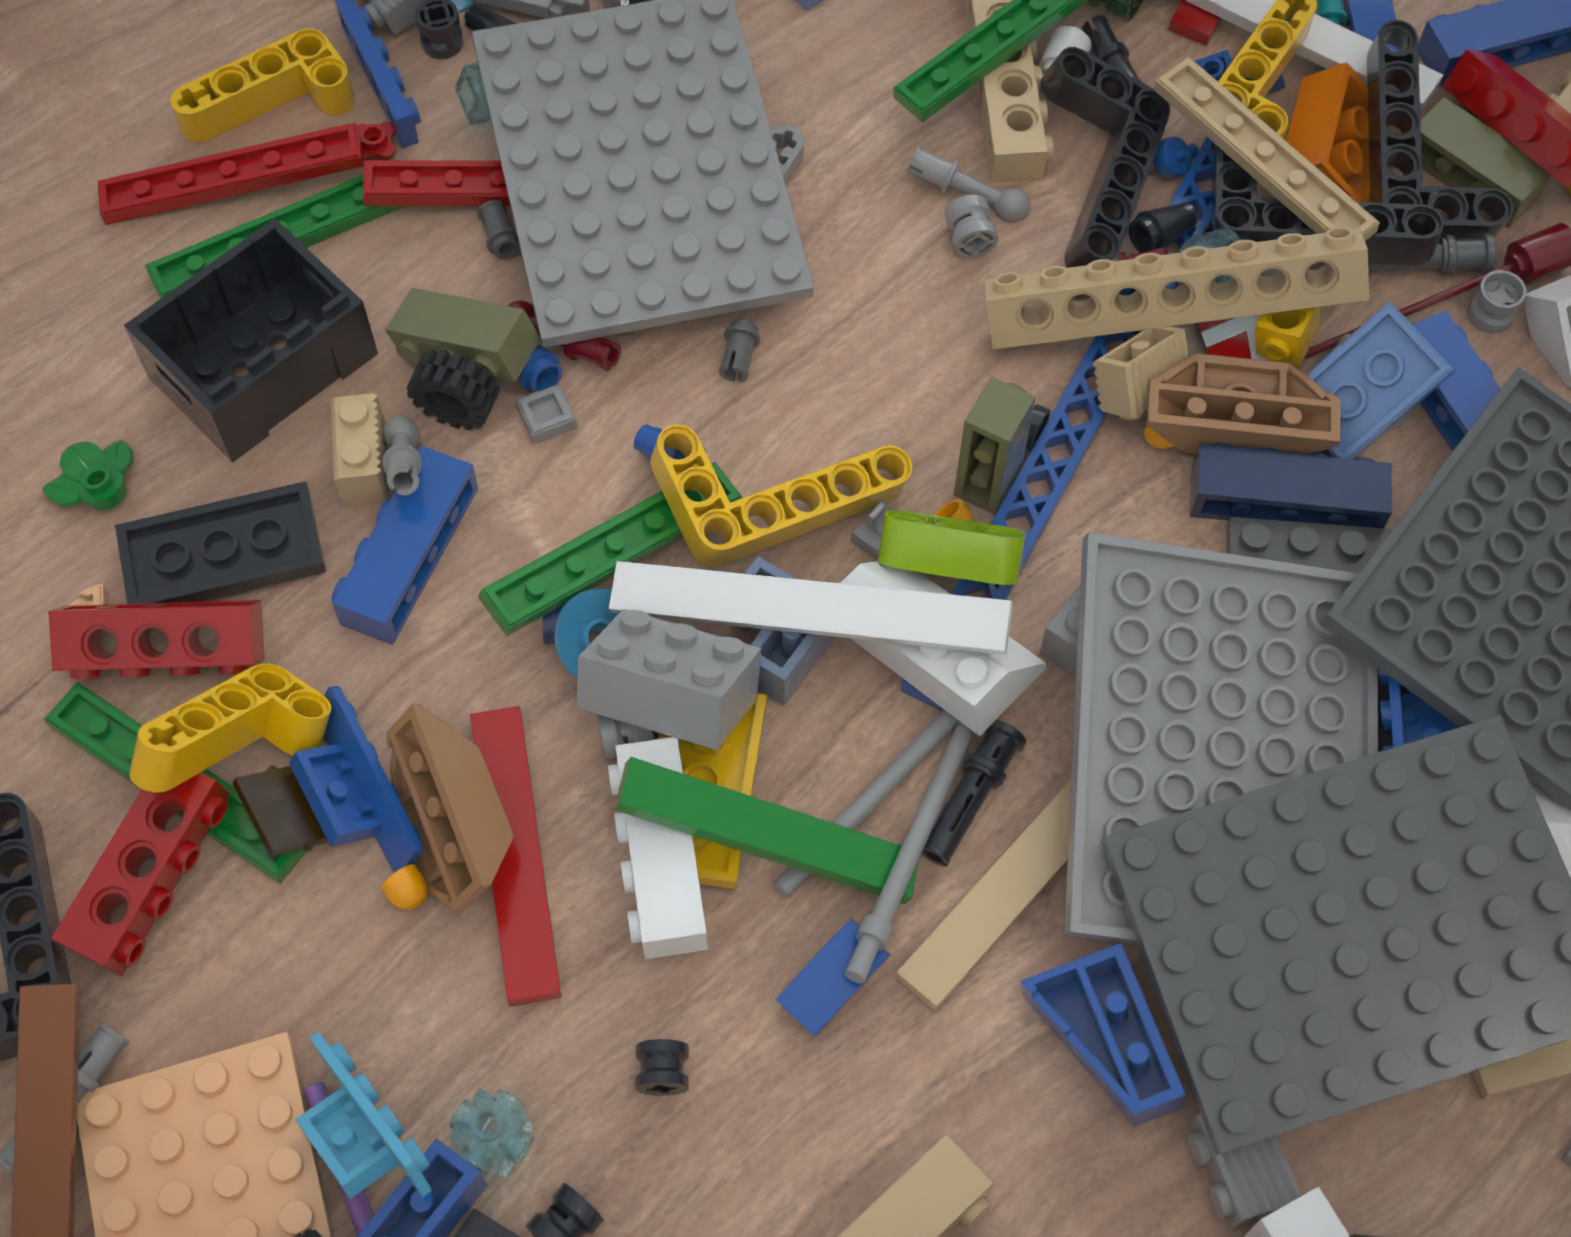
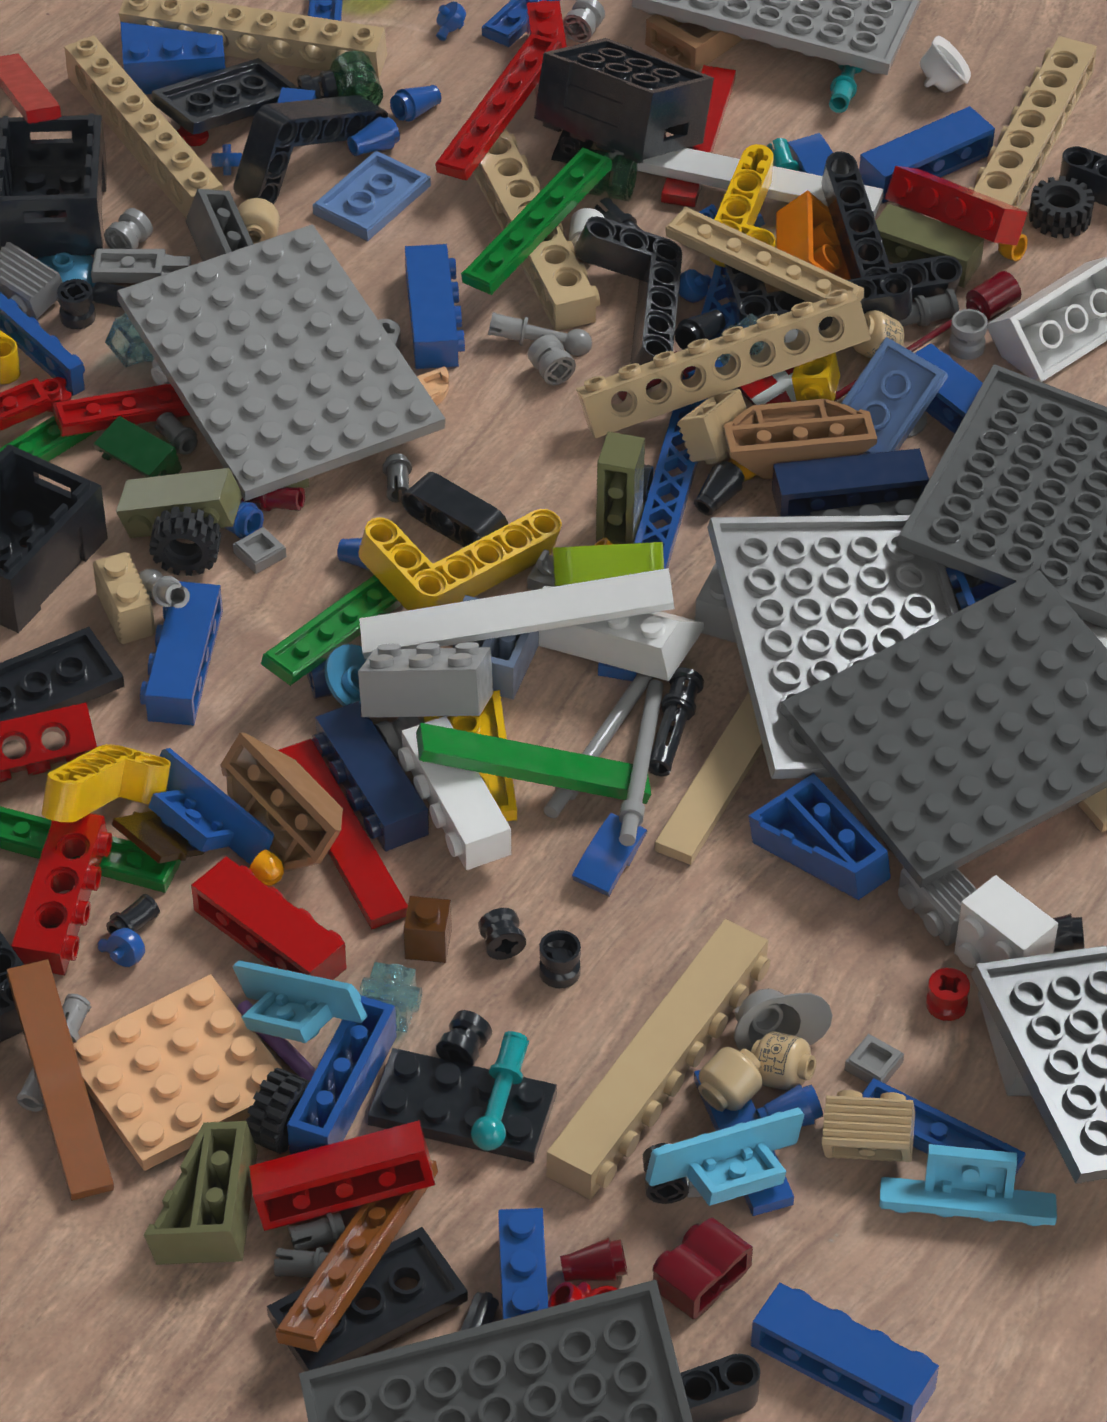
camera: 15 degrees left, 15 degrees down
(196, 963) = (123, 947): none -> blue piece
(222, 920) = (135, 915): none -> black pin
(380, 980) = (266, 922): none -> red brick
(443, 248) = (138, 449): none -> dark green hinge
(569, 1038) = (427, 929): none -> reddish brown brick
(573, 786) = (371, 777): none -> dark blue brick
(722, 1117) = (559, 959): none -> black wheel
(791, 417) = (451, 510): none -> black beam
(821, 229) = (436, 384): none -> light nougat tile
(850, 120) = (432, 306): none -> blue brick
(1126, 454) = (720, 486): none -> black cone
(1388, 281) = (879, 327): none -> tan head

